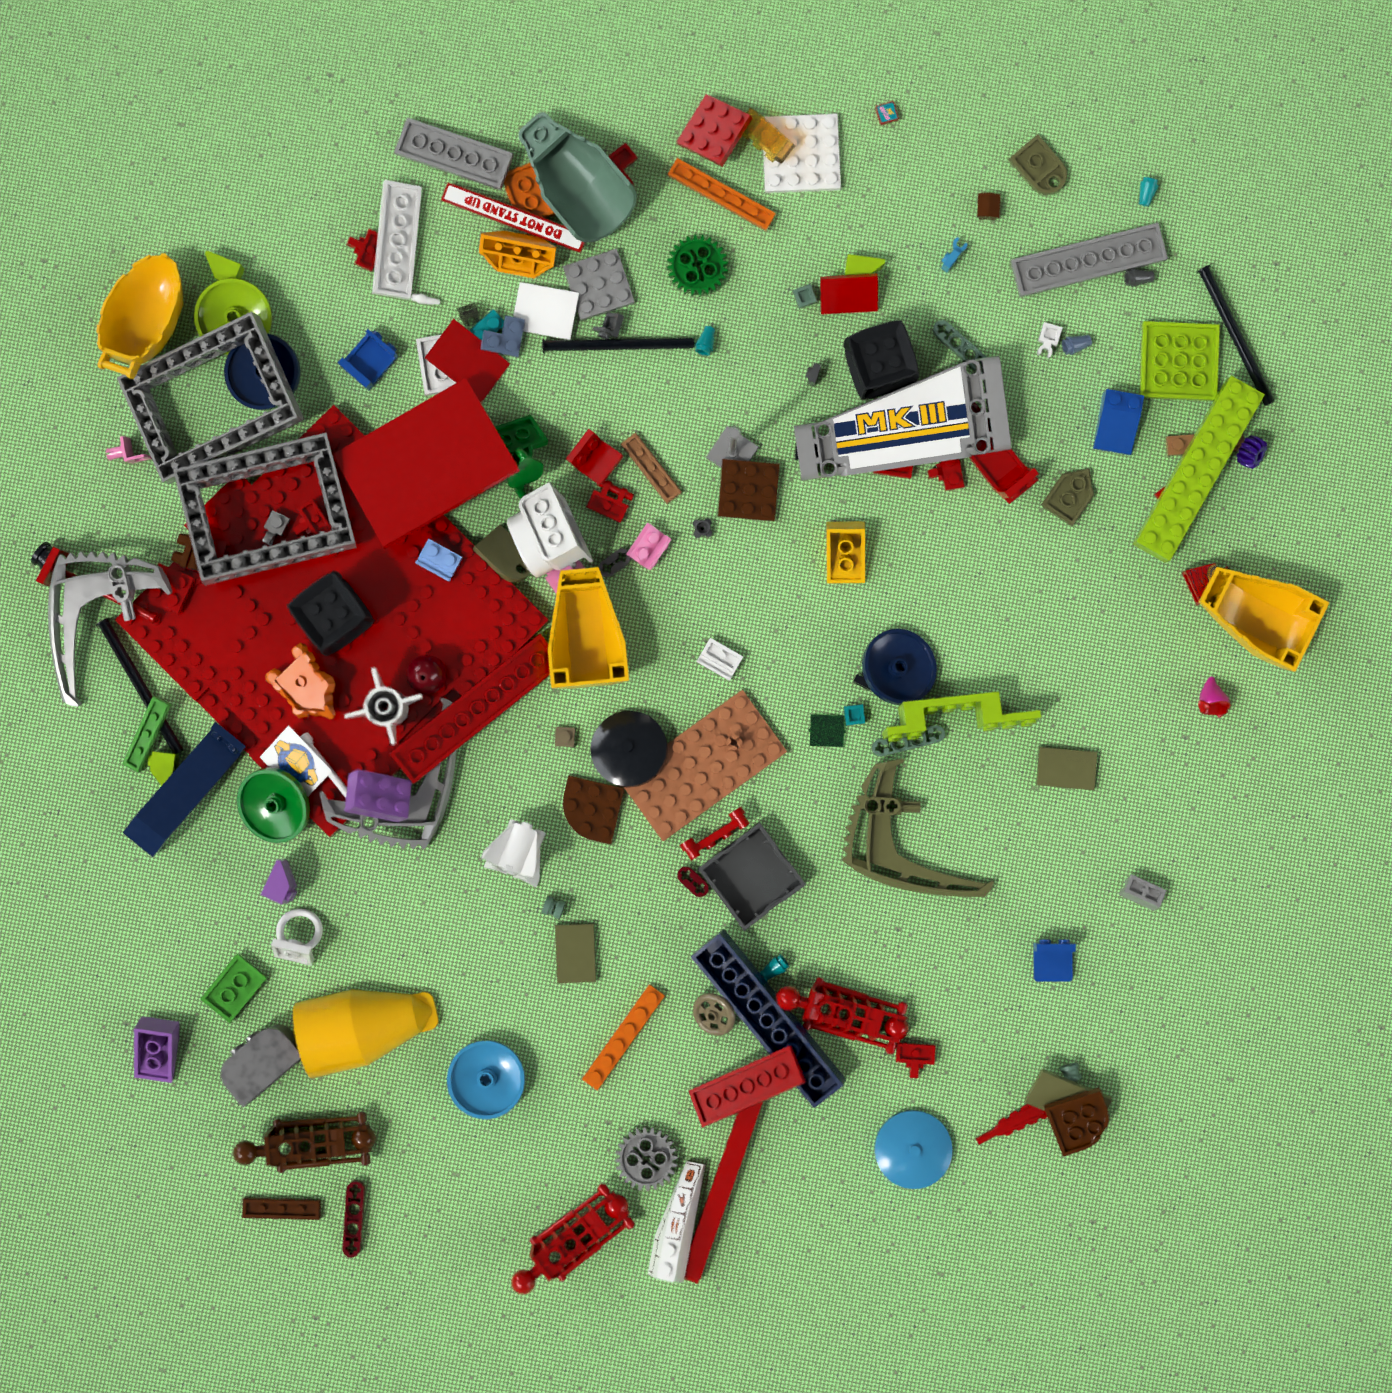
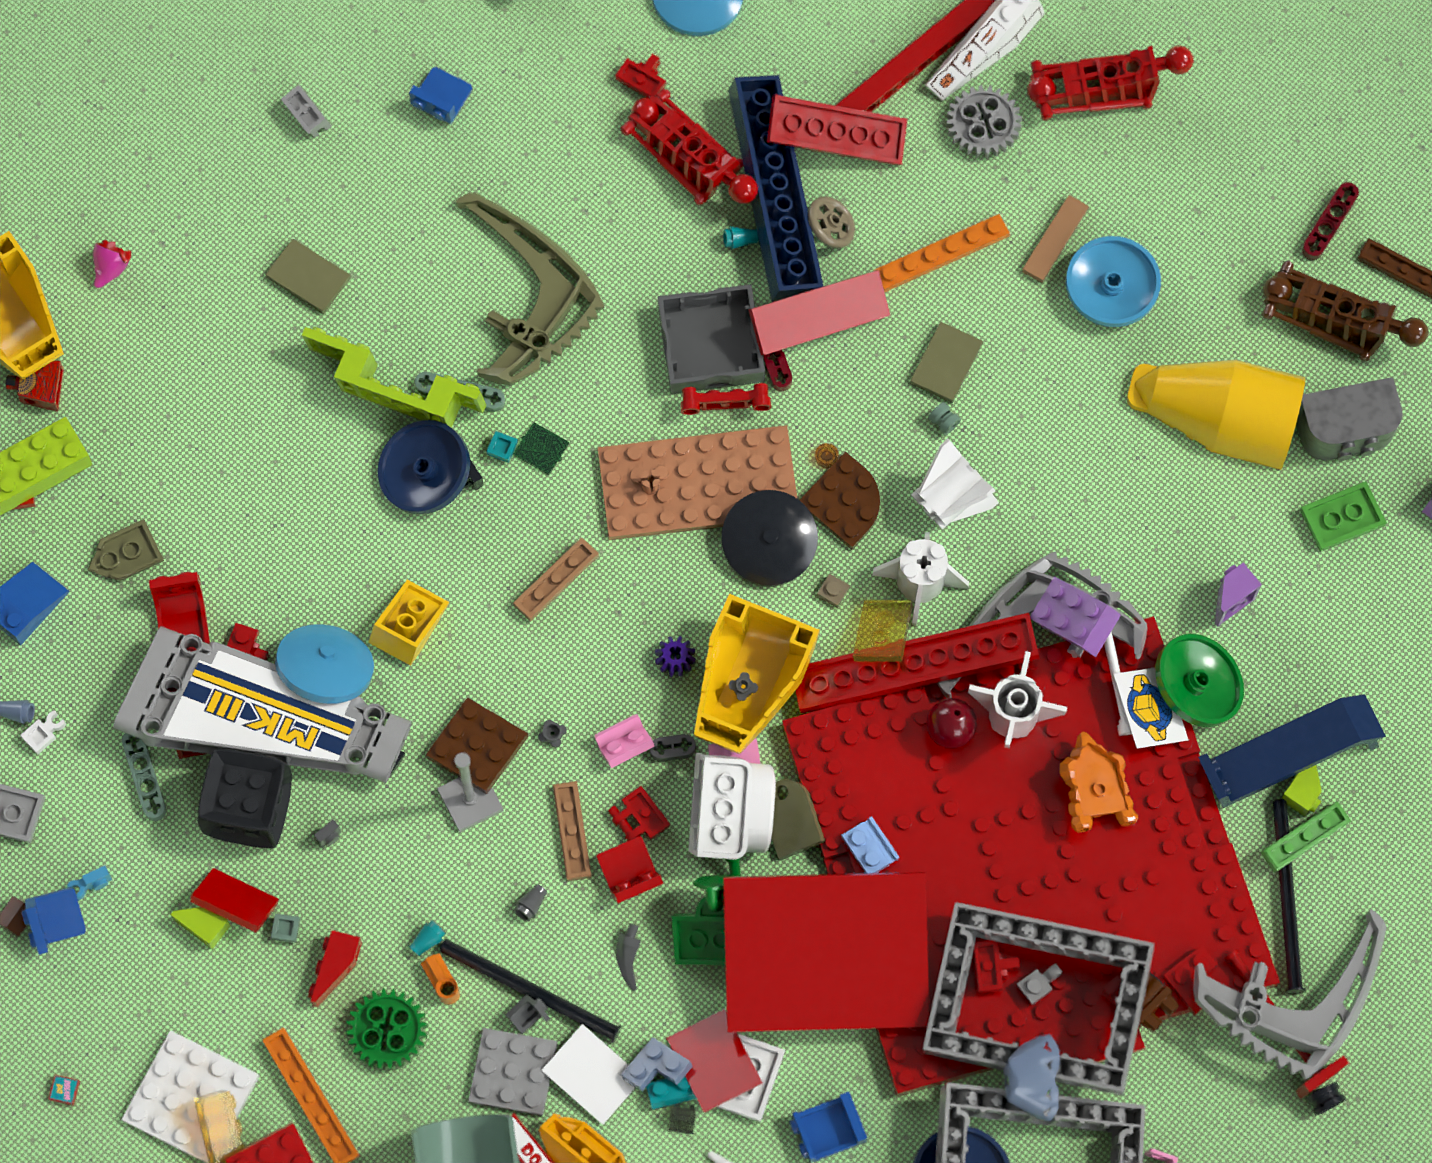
camera: 155 degrees left, 15 degrees down
(242, 446) = (1032, 1079): none -> sand blue piece
(293, 949) = (1255, 519): white tile -> none
(330, 613) = (1024, 839): black piece -> none
(512, 721) = (882, 630): none -> clear yellow tile
(516, 784) = (921, 572): none -> white brick
(546, 1094) = (1055, 239): none -> medium nougat tile
(568, 406) = (625, 953): none -> dark grey bar
(586, 631) = (744, 679): none -> dark grey plate
(623, 835) = (826, 455): none -> clear orange tile
(650, 402) = (529, 904): none -> dark grey cone
(654, 625) = (667, 663): none -> dark purple gear
(682, 319) = (440, 978): none -> orange piece
(683, 936) = (819, 312): none -> tile
(719, 659) = (615, 581): white plate -> none
(756, 293) = (338, 961): none -> red slope
(761, 638) = (556, 579): none -> medium nougat plate
(884, 486) = (324, 663): none -> dark azure dish
(964, 215) = (53, 918): none -> blue bracket

